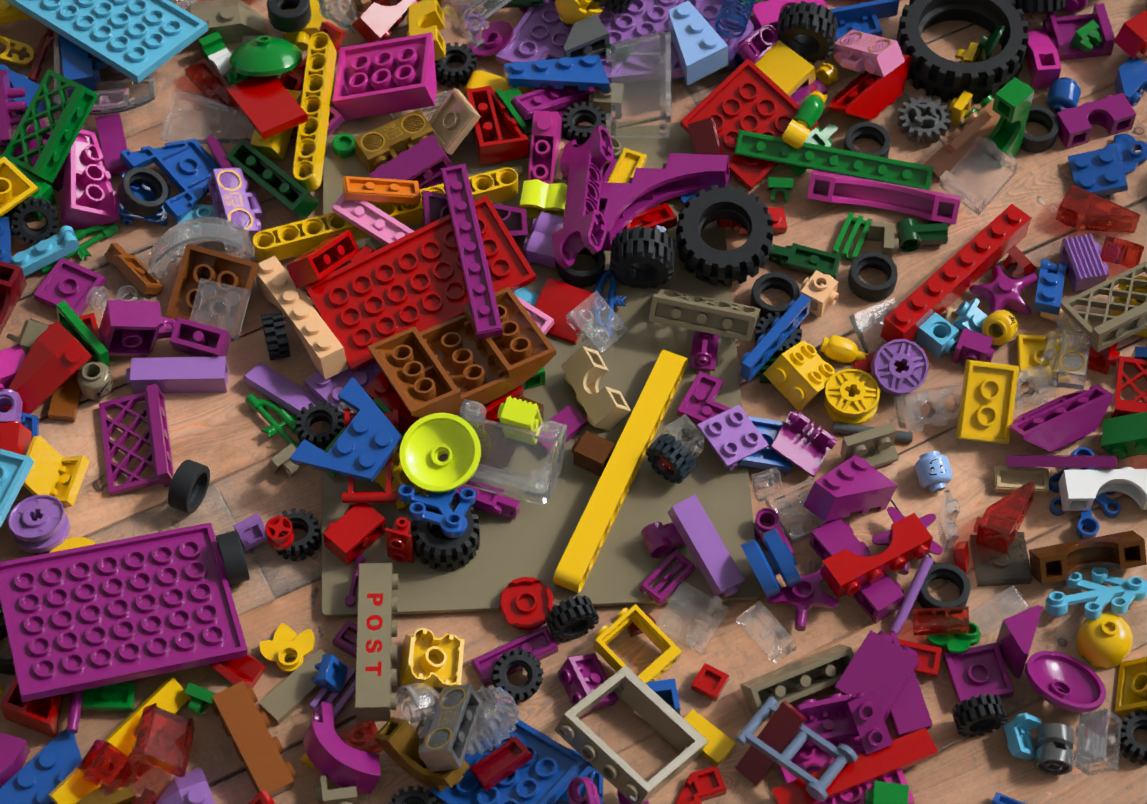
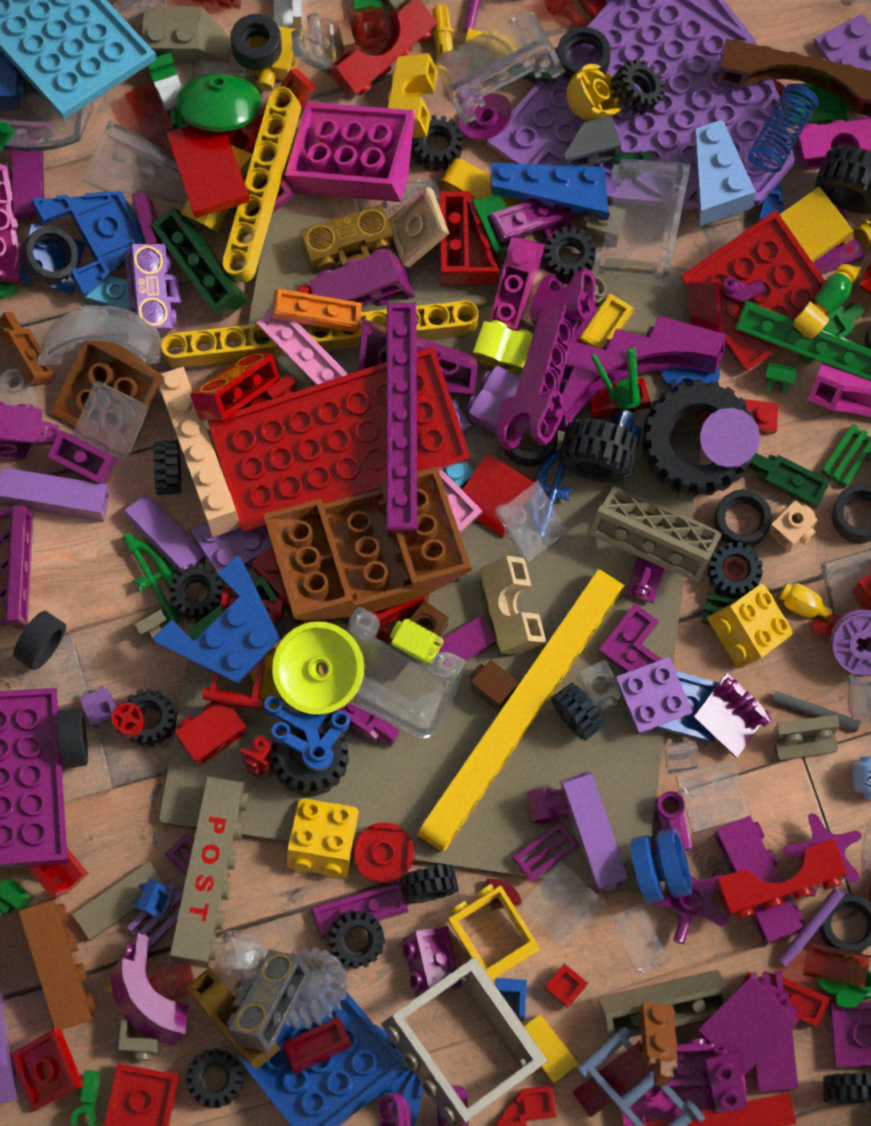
camera: 10 degrees right, 15 degrees up
(288, 645) = (115, 848): yellow plate -> none
(343, 145) = (289, 229): green tile -> none
(350, 599) = (192, 810): magenta hinge -> none
(432, 659) = (268, 900): yellow slope -> none
(470, 602) = (322, 838): none -> yellow bracket
(656, 210) = (627, 390): none -> green plant
(734, 124) = (741, 291): none -> magenta arm
(750, 222) = (729, 438): none -> medium lavender tile
(757, 43) = (786, 189): magenta piece -> none
(778, 333) = (720, 586): blue plate -> none
(802, 696) = (659, 1040): none -> dark orange hinge
(849, 489) = (769, 788): magenta wedge -> none
(851, 397) = (817, 669): yellow wheel -> none

